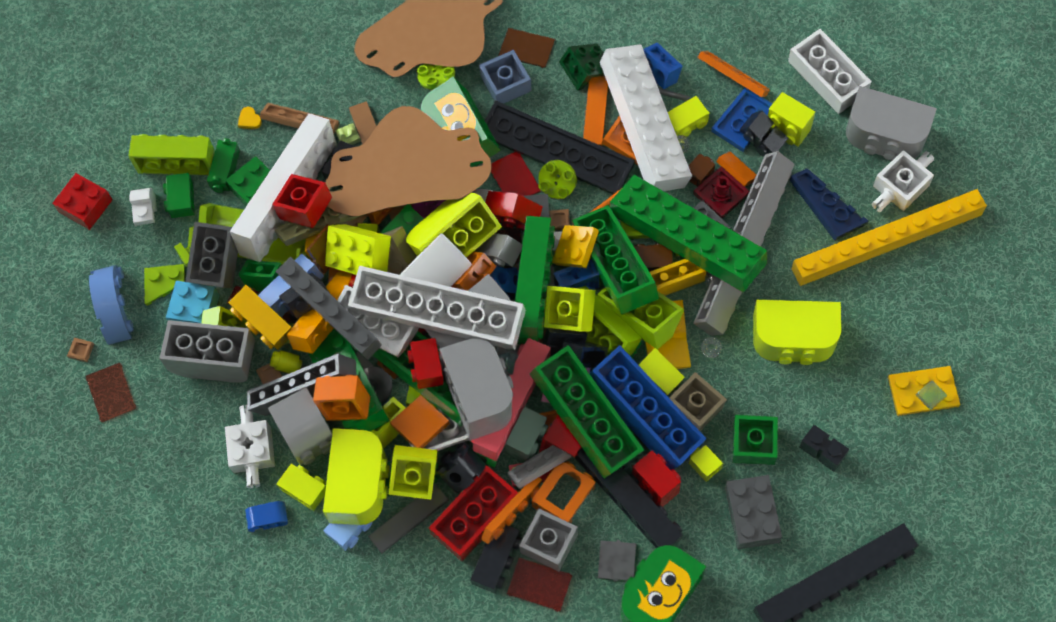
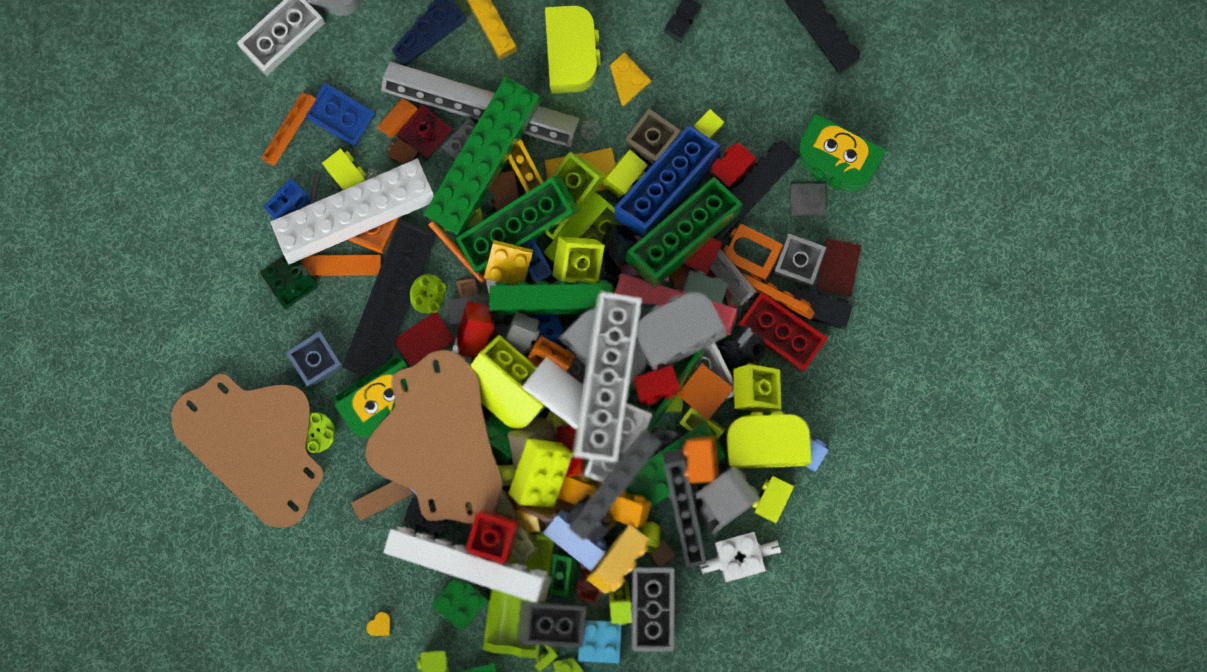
camera: 100 degrees left, 15 degrees up
(223, 165) = (440, 640): green brick -> none
(266, 516) = (805, 529): blue beam -> none
(289, 116) = (376, 573): medium nougat tile -> none
(348, 134) = (391, 517): yellowish green tile -> none
(407, 520) = (798, 402): dark grey tile -> none
(528, 46) = (270, 345): reddish brown piece -> none
(753, 512) = (751, 79): dark grey brick -> none
(755, 439) = (682, 81): green brick -> none
(758, 131) = (359, 96): black piece -> none
(763, 389) = (628, 78): none -> yellow wing
(791, 118) = (343, 68): neon yellow brick -> none

